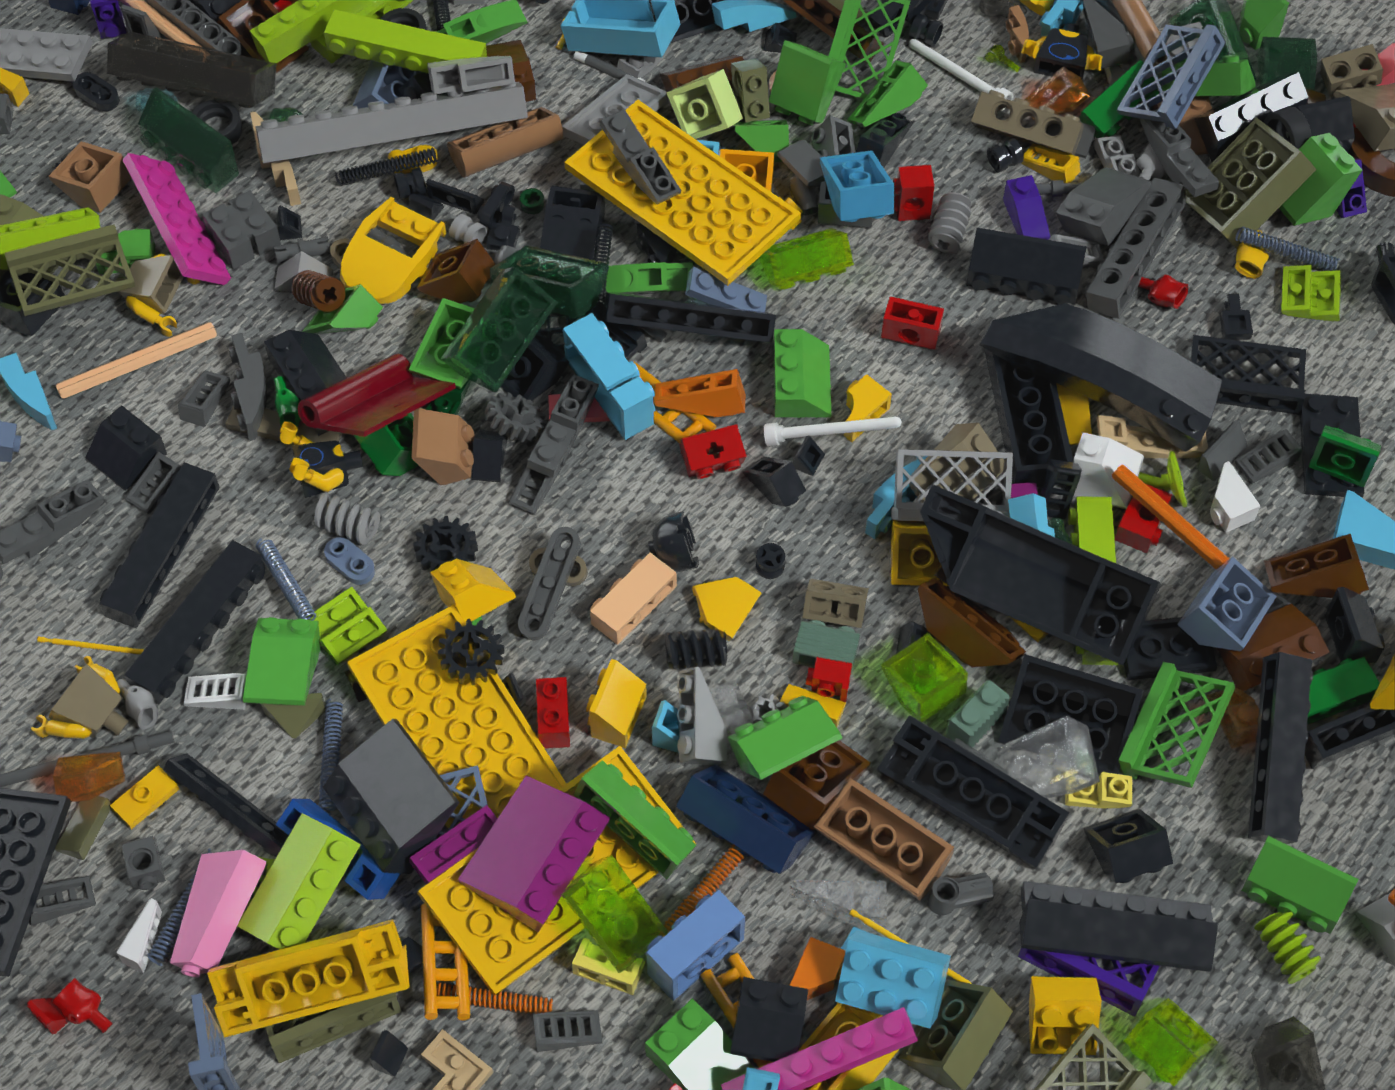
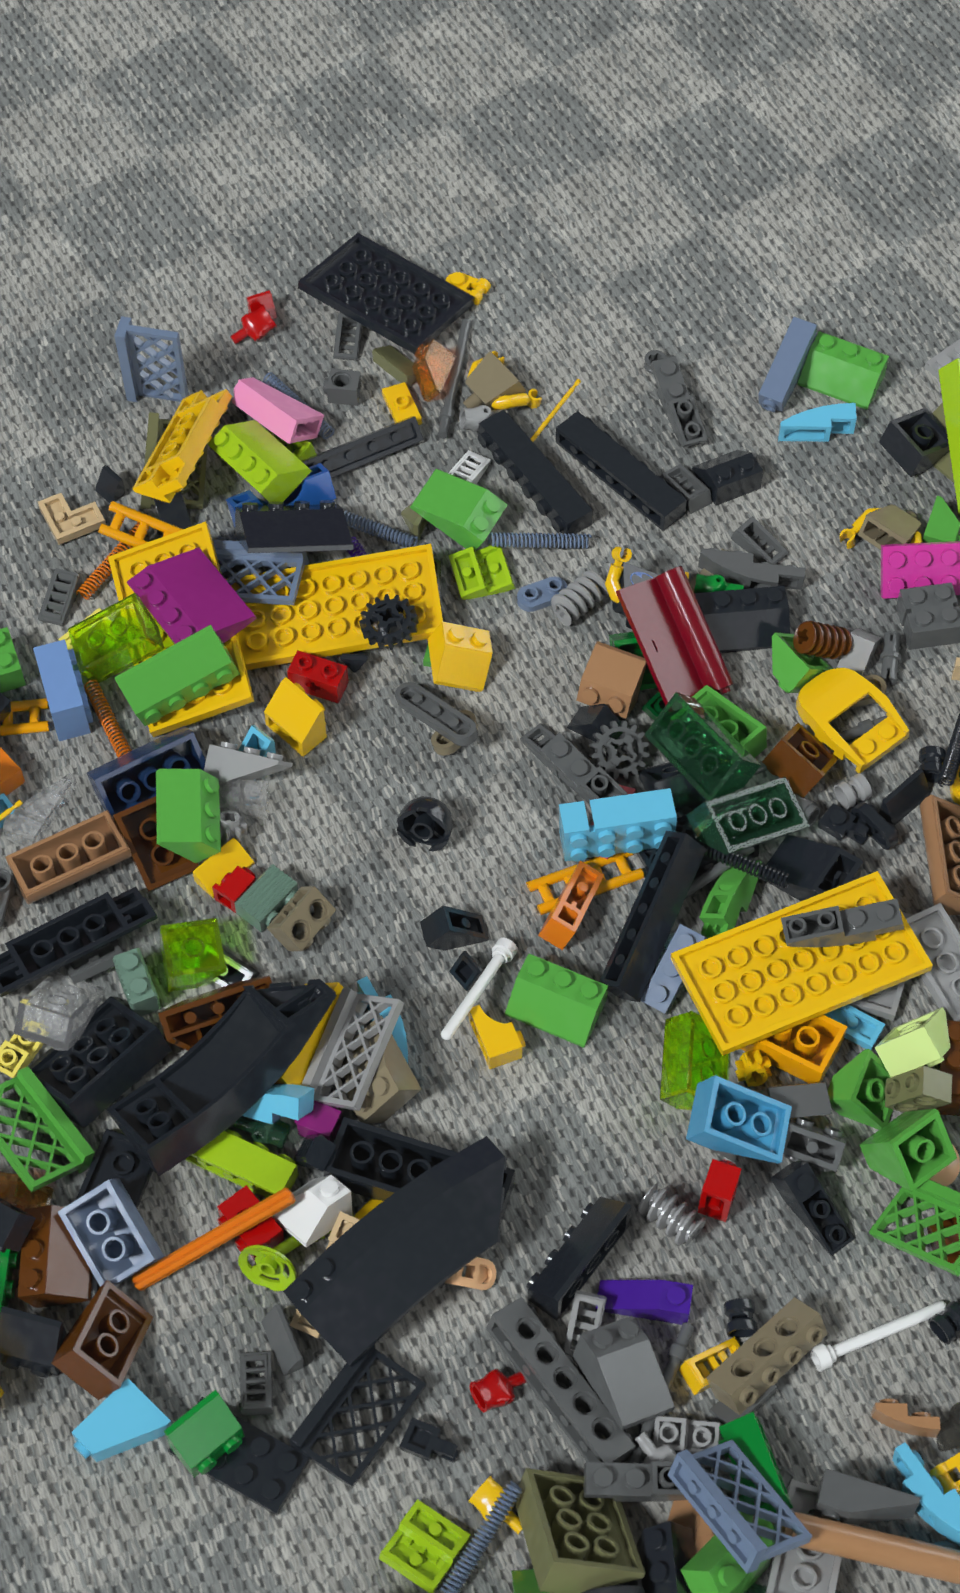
camera: 115 degrees right, 0 degrees up
(64, 253) = (941, 465): olive fence -> none
(136, 360) = (821, 509): light nougat axle -> none
(141, 937) = (285, 370): white slope -> none
(288, 224) = (926, 657): black slope -> none
(425, 206) = (901, 770): black slope -> none
(445, 542) = (515, 657): black gear -> none
(453, 845) = (230, 558): magenta plate -> none
(529, 194) = (872, 852): dark green bush -> none
(633, 597) = (392, 771): light nougat brick -> none
(696, 648) = (317, 799): black piece -> none
(722, 440) = (507, 890): red brick -> none
(725, 604) = (352, 842): yellow slope -> none
(772, 554) = (373, 886): black wheel -> none
(892, 93) = (864, 1234): bright green slope -> none
(912, 323) = (564, 1118): red brick -> none
(999, 56) = (880, 1388): clear neon green hand -> none
(1060, 92) = (799, 1415): clear orange slope -> none
(1062, 49) = (858, 1446): black torso -> none
(1232, 501) = (226, 1314): white slope -> none

